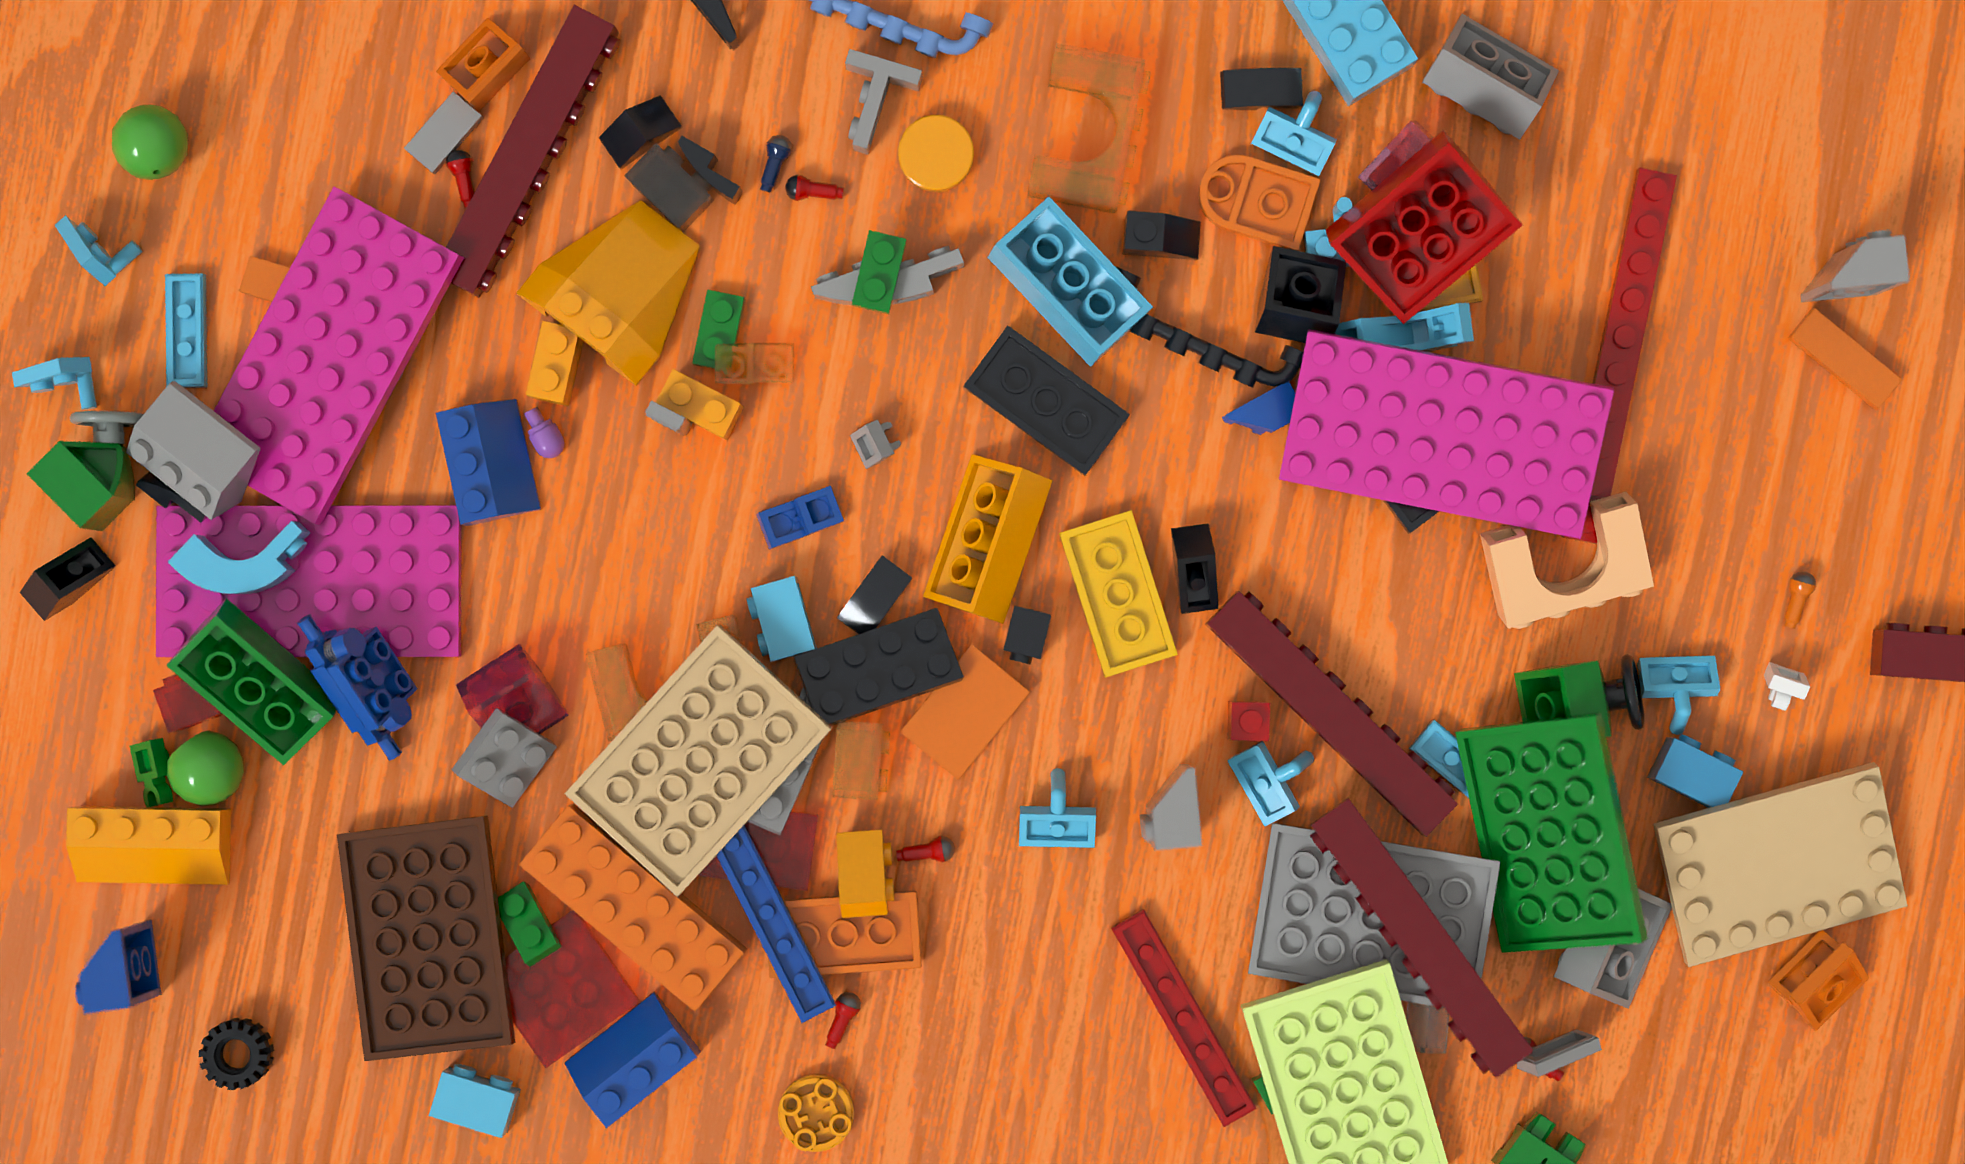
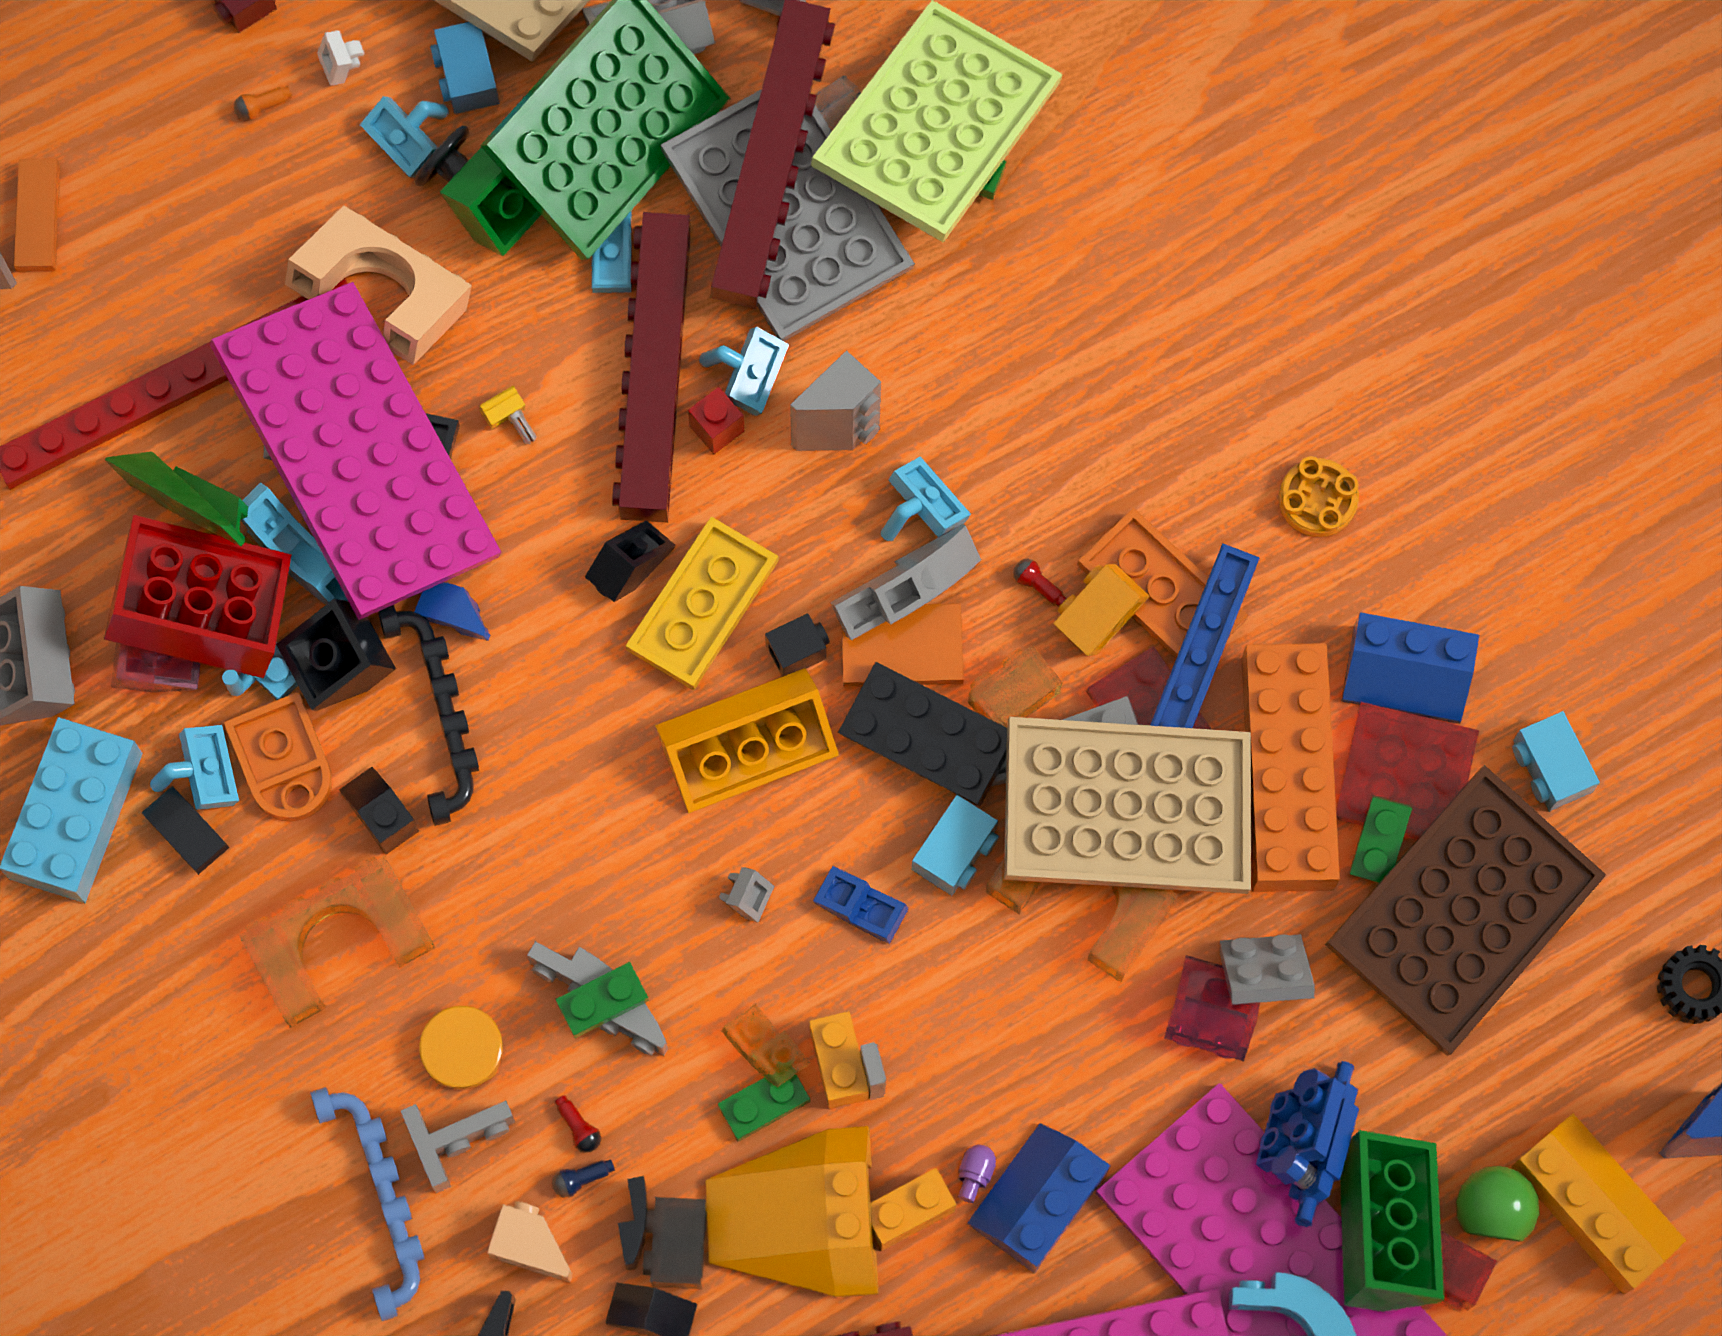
camera: 135 degrees left, 15 degrees down
(151, 768) = (1536, 1255): green plate -> none
(756, 86) = (527, 1242): none -> light nougat slope
(846, 1008) = (1213, 538): red piece -> none
(874, 596) = (873, 788): black slope -> none
(997, 753) = (909, 585): none -> light grey slope
(1046, 400) = (593, 787): black plate -> none
(1069, 281) = (478, 845): medium azure slope -> none
(1183, 1018) = (991, 287): red tile -> none
(1391, 580) = (506, 407): none -> yellow piece
(1516, 282) = (183, 493): none -> green wedge

